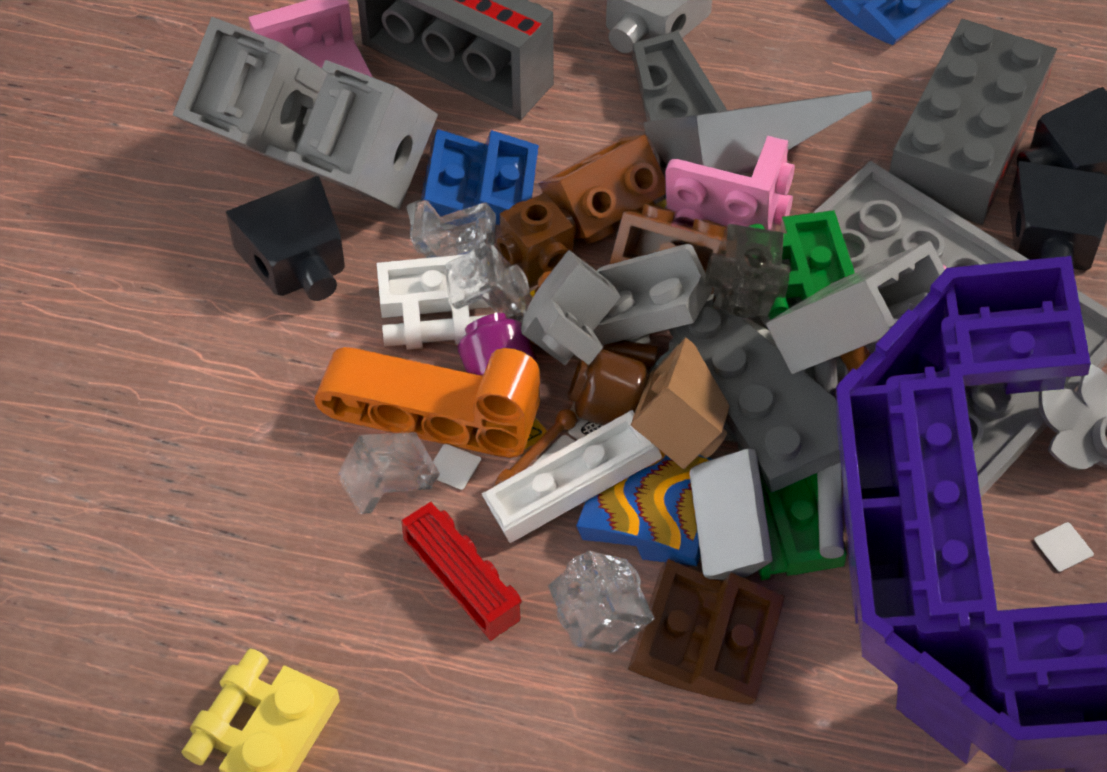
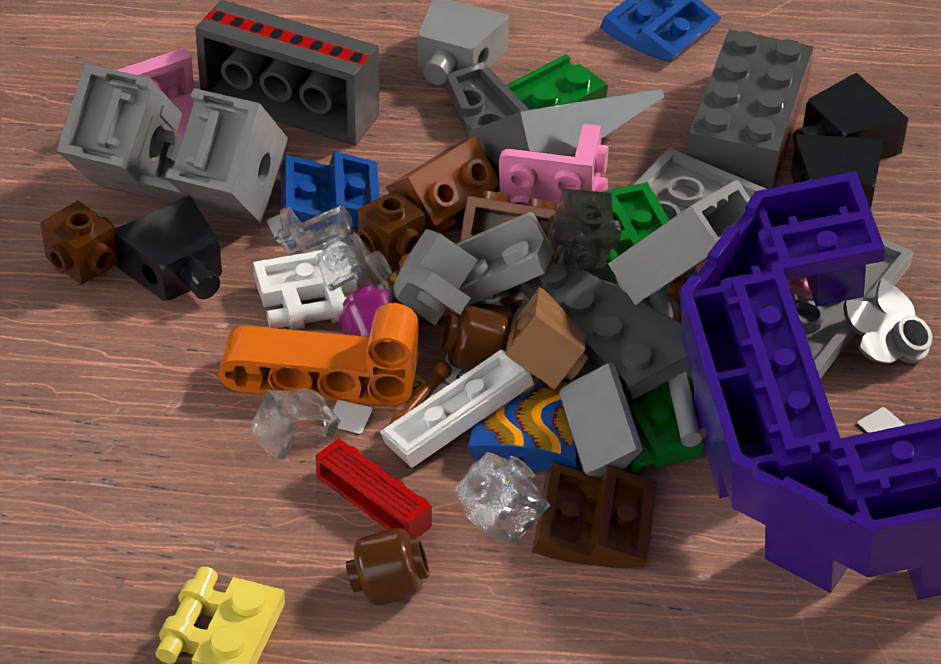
camera: 10 degrees left, 10 degrees down
(194, 230) = (79, 242): none -> reddish brown brick
(458, 675) = (388, 566): none -> reddish brown head
(757, 71) = (558, 85): none -> green plate

